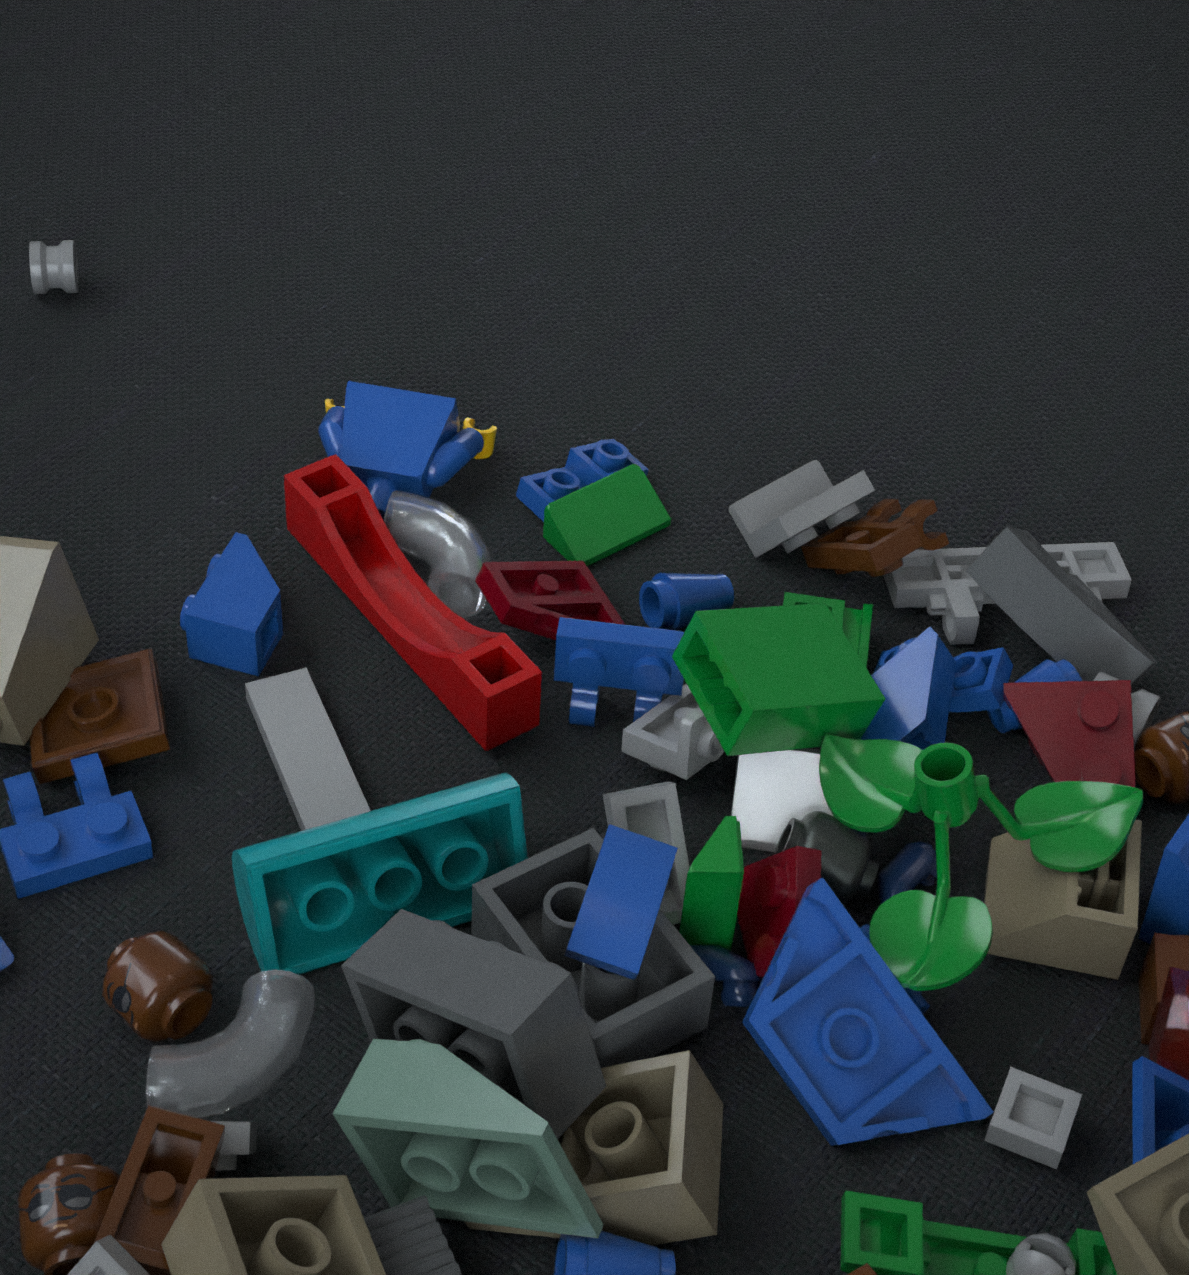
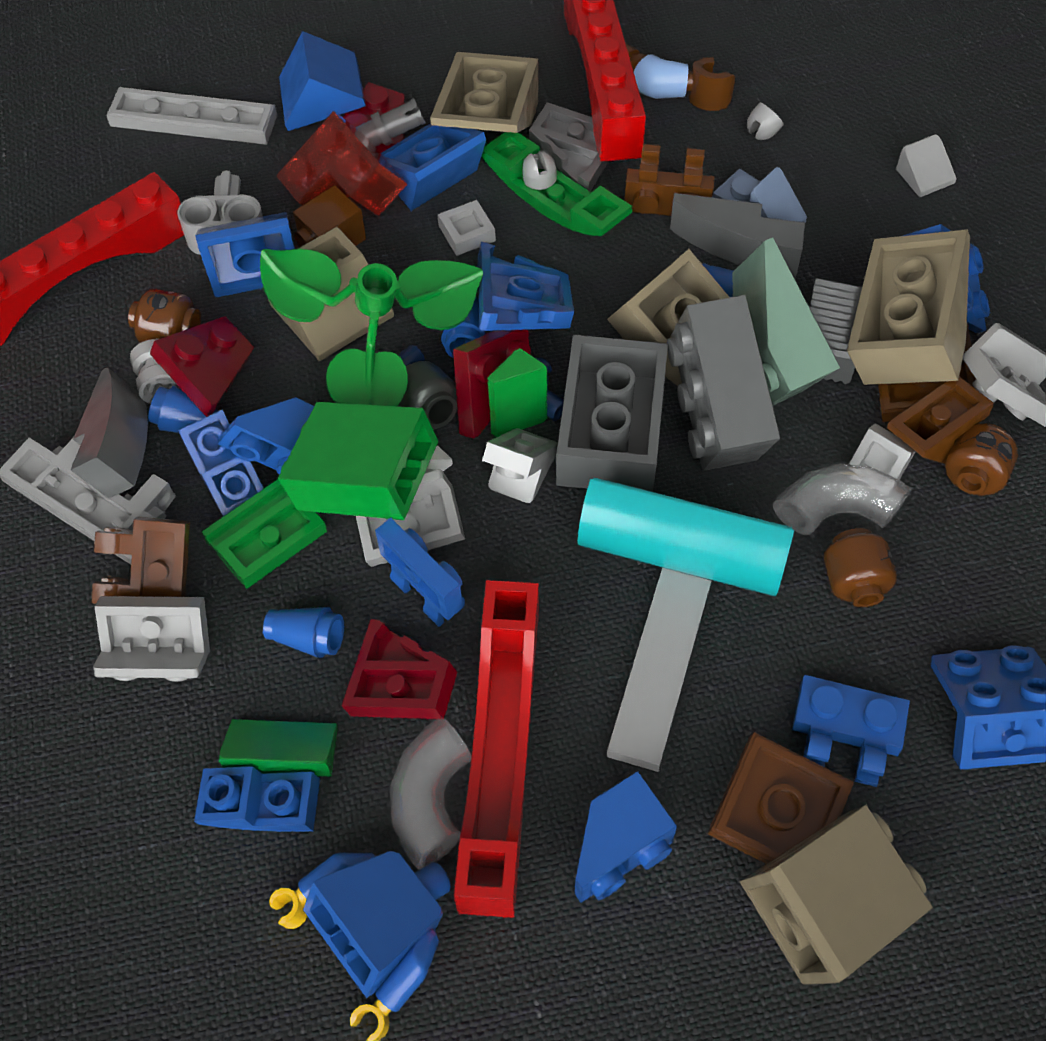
camera: 135 degrees left, 15 degrees up
(621, 902) = (587, 380): blue slope -> none

